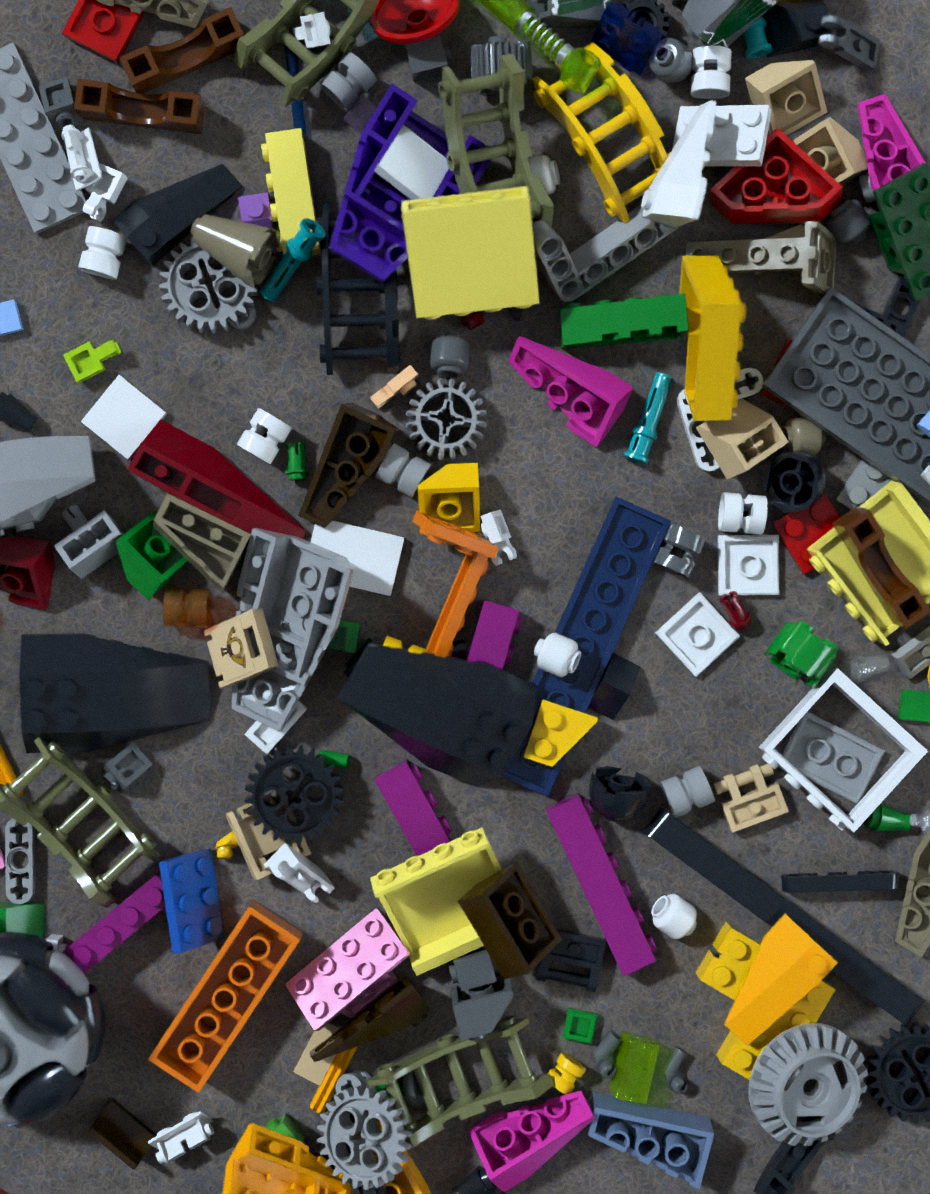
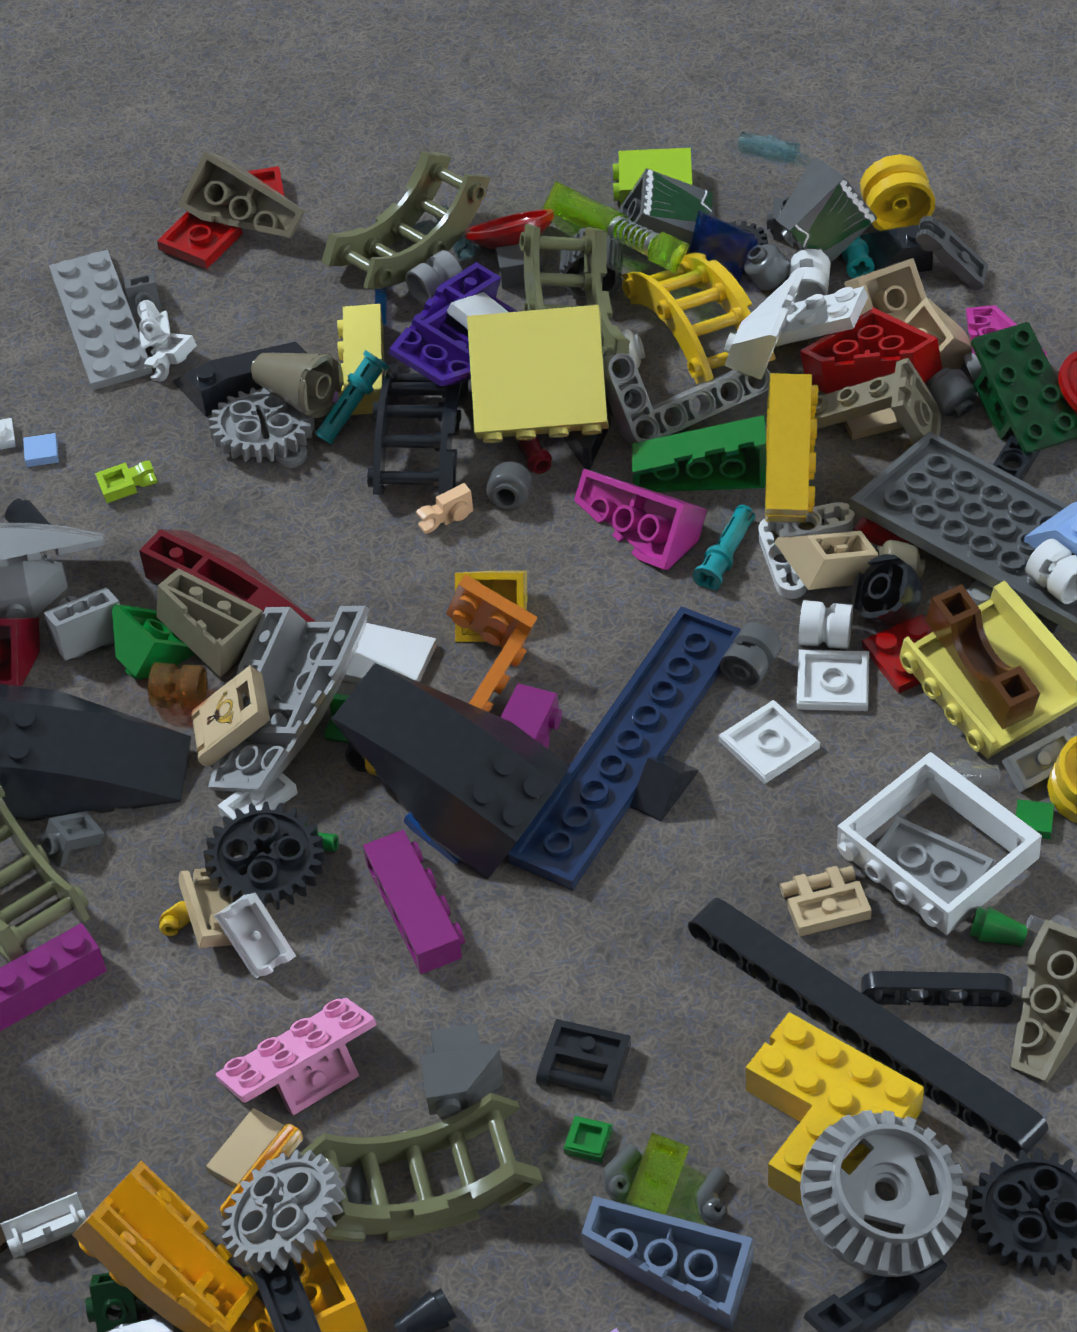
camera: 10 degrees right, 40 degrees down
(102, 252) = (156, 395): white wheel -> none
(115, 105) = (187, 288): reddish brown arch -> none
(123, 417) = (139, 524): white tile -> none
(157, 65) = (242, 265): reddish brown arch -> none
(191, 900) = (118, 958): blue plate -> none
(226, 996) = (137, 1065): orange brick -> none
(253, 439) = (295, 542): white wheel -> none
(296, 463) = (325, 576): green pin -> none
(314, 30) = (406, 232): white plate -> none
(350, 456) = (383, 553): dark brown wedge -> none
(386, 1015) = (334, 1095): dark brown wedge -> none
(404, 471) = (436, 571): light grey wheel -> none
(425, 894) = (432, 963): light yellow panel -> none
(449, 393) = (497, 537): light grey gear -> none
(497, 532) = (544, 638): white plate -> none
(510, 921) = (505, 980): dark brown slope -> none
(523, 1140) = (485, 1267): dark pink wedge -> none
(556, 732) = (588, 812): yellow wing -> none
(557, 654) = (597, 732): white head -> none
(566, 1073) = (564, 1182): yellow wheel -> none
(600, 884) = (631, 978): magenta brick -> none
(618, 795) = (658, 879): black cylinder -> none
(674, 916) = (720, 1015): white head -> none
(687, 791) = (746, 882): light grey wheel -> none
(739, 617) = (816, 717): dark red pin -> none
(779, 977) = (845, 1054): light orange wedge -> none
(801, 653) = (885, 739): green brick -> none

